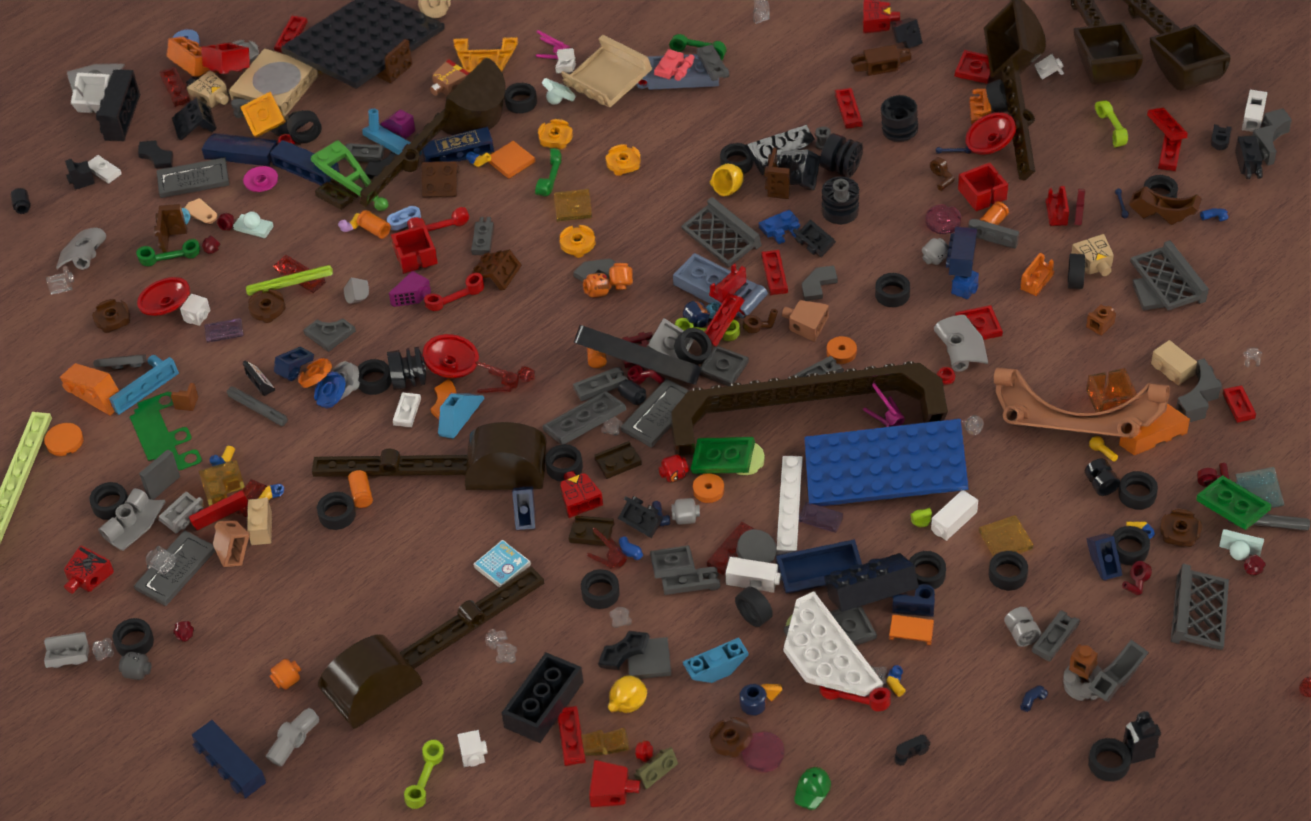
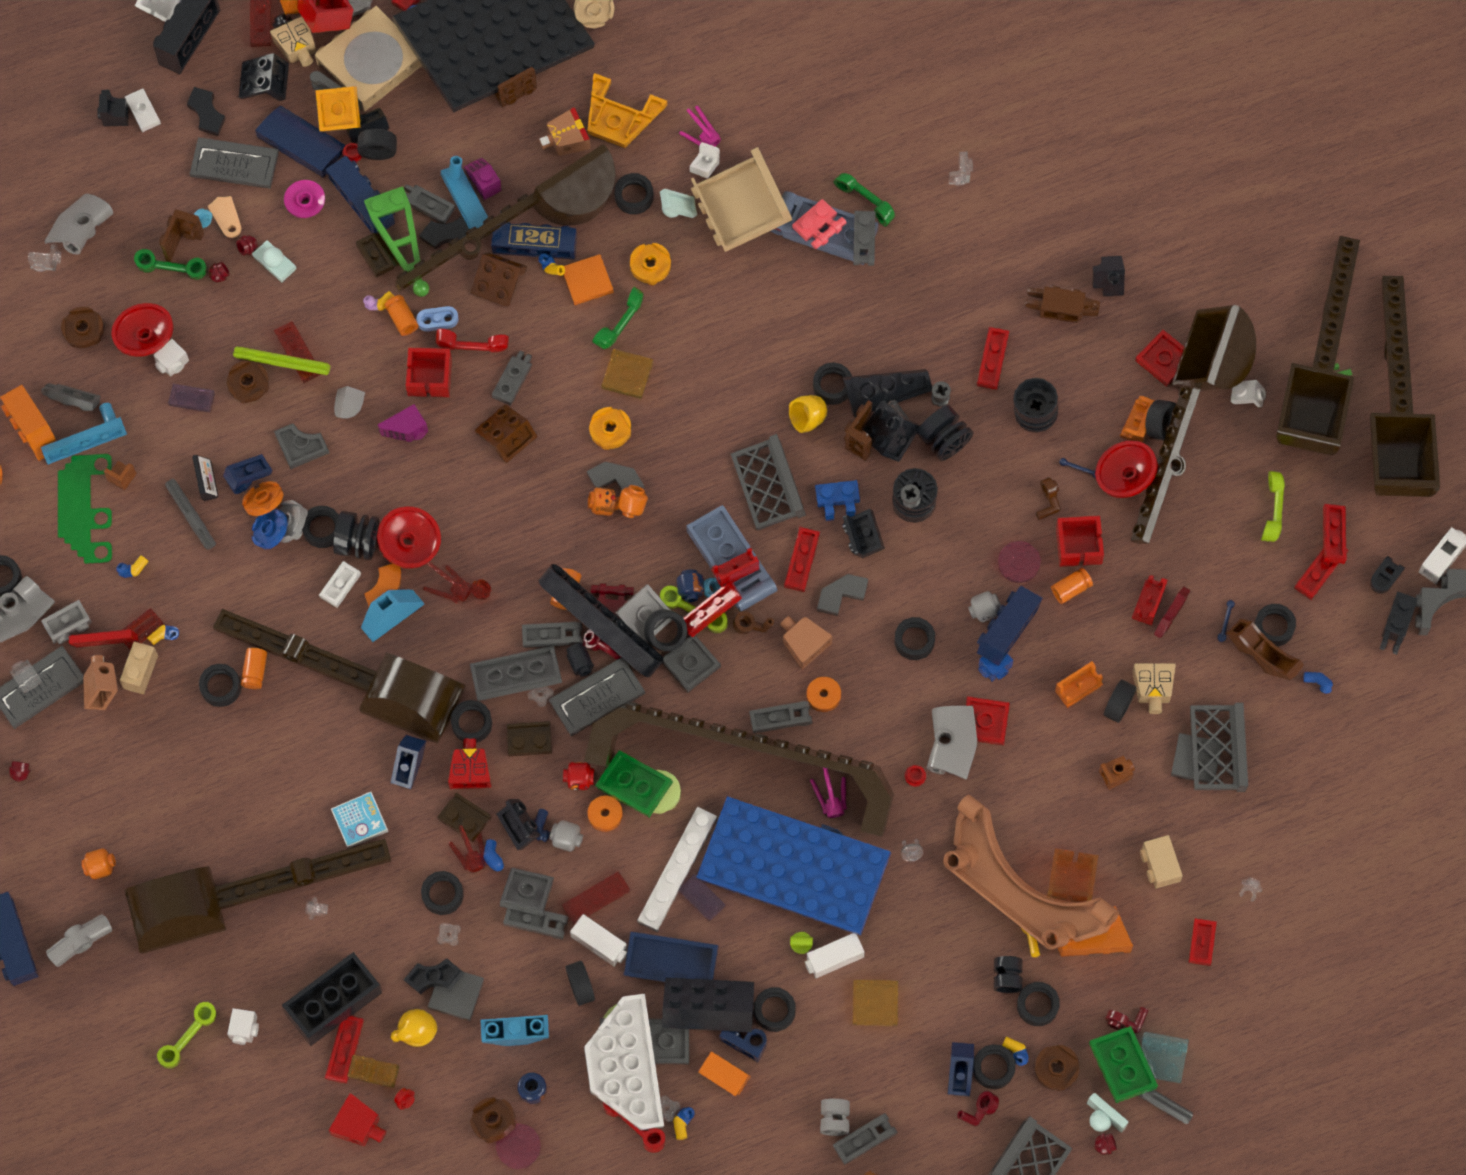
camera: 20 degrees right, 20 degrees up
(20, 200) = (39, 123): black brick -> none
(159, 474) = (58, 570): dark grey tile -> none
(221, 480) = (114, 600): clear yellow brick -> none
(474, 286) = (474, 446): red piece -> none
(506, 649) = (319, 923): clear plate -> none
(620, 167) = (715, 341): light orange plate -> none
(659, 766) = (418, 1118): olive hinge -> none
(756, 546) = (617, 911): dark grey tile -> none
(772, 690) = (557, 1081): light orange slope -> none
(878, 16) = (1090, 235): red torso -> none
(995, 233) = (1059, 607): dark grey plate -> none
(1012, 558) = (860, 1027): black tyre -> none
(1195, 403) = (1150, 924): dark grey arch -> none

